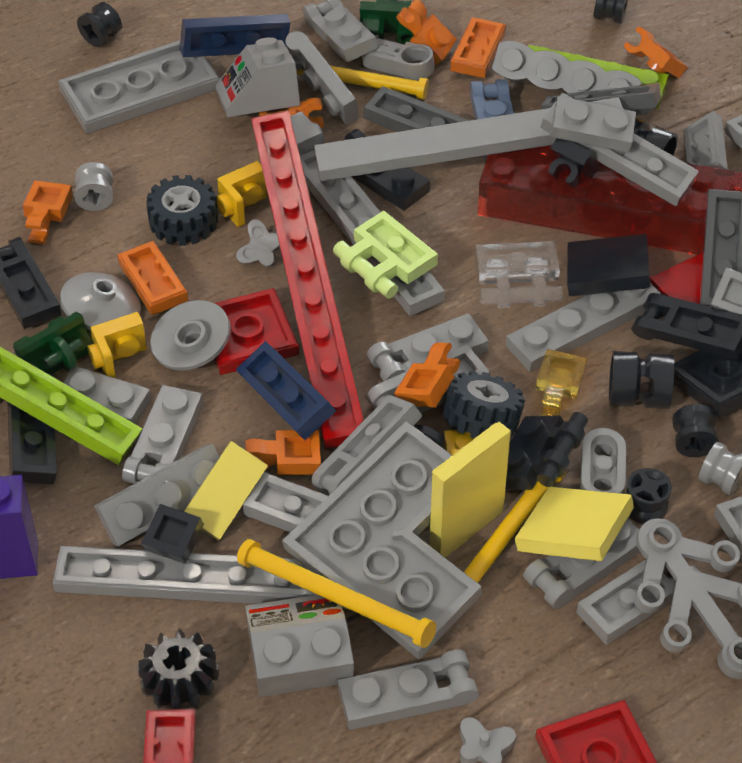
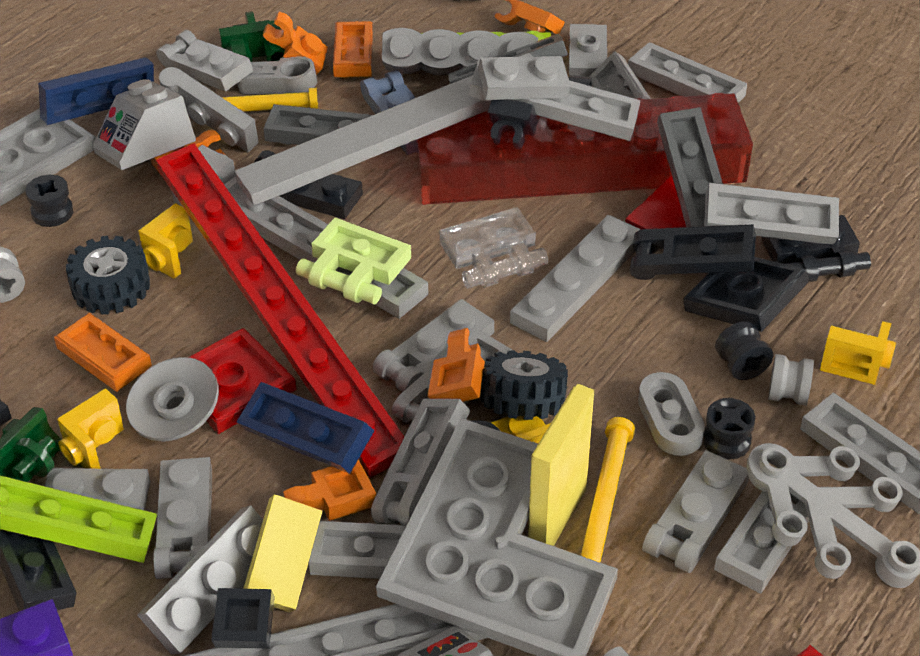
camera: 20 degrees left, 5 degrees down
(98, 298) = (49, 386): light grey dish -> none
(159, 129) = (49, 200): none -> black wheel
(261, 246) = (211, 289): light grey piece -> none
(420, 631) = (578, 636): yellow bar -> none
(542, 449) = (607, 422): black plate -> none
(559, 377) = (587, 336): clear yellow plate -> none
(574, 523) = (674, 476): light yellow tile -> none
(608, 265) = (582, 216): black tile -> none
(626, 375) = (675, 314): black wheel -> none
(696, 99) = (586, 48): none -> light grey plate

